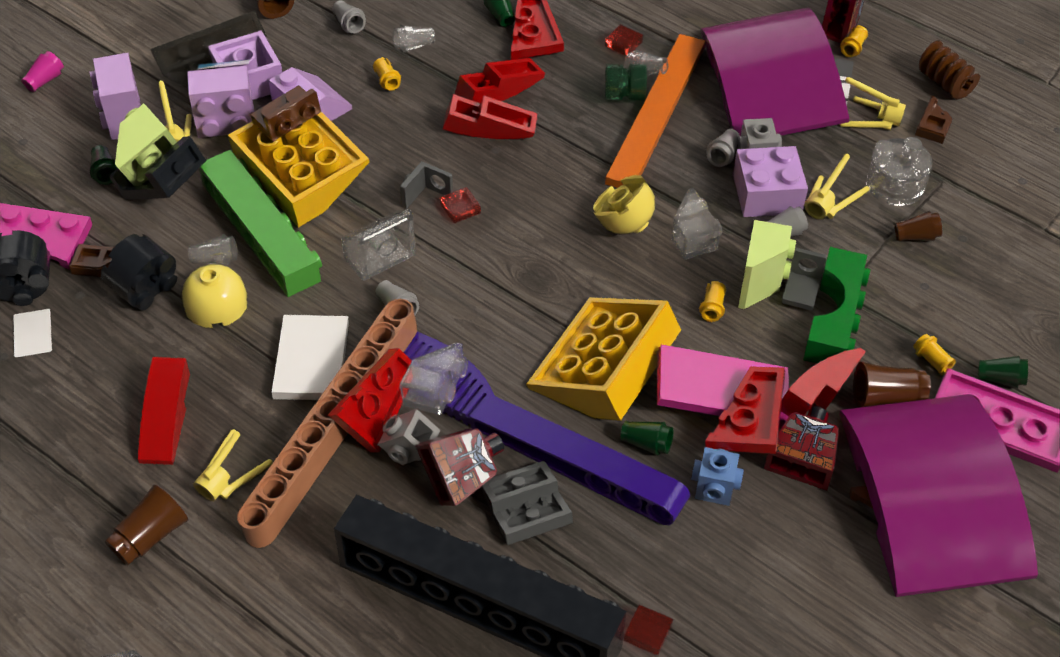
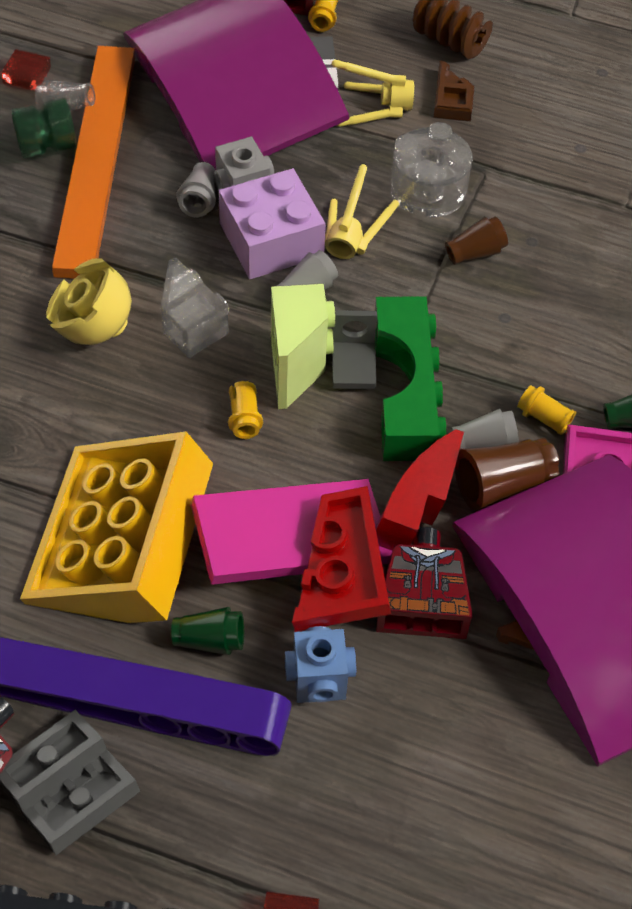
camera: 20 degrees left, 5 degrees up
(886, 355) = (489, 430): none -> light grey cone

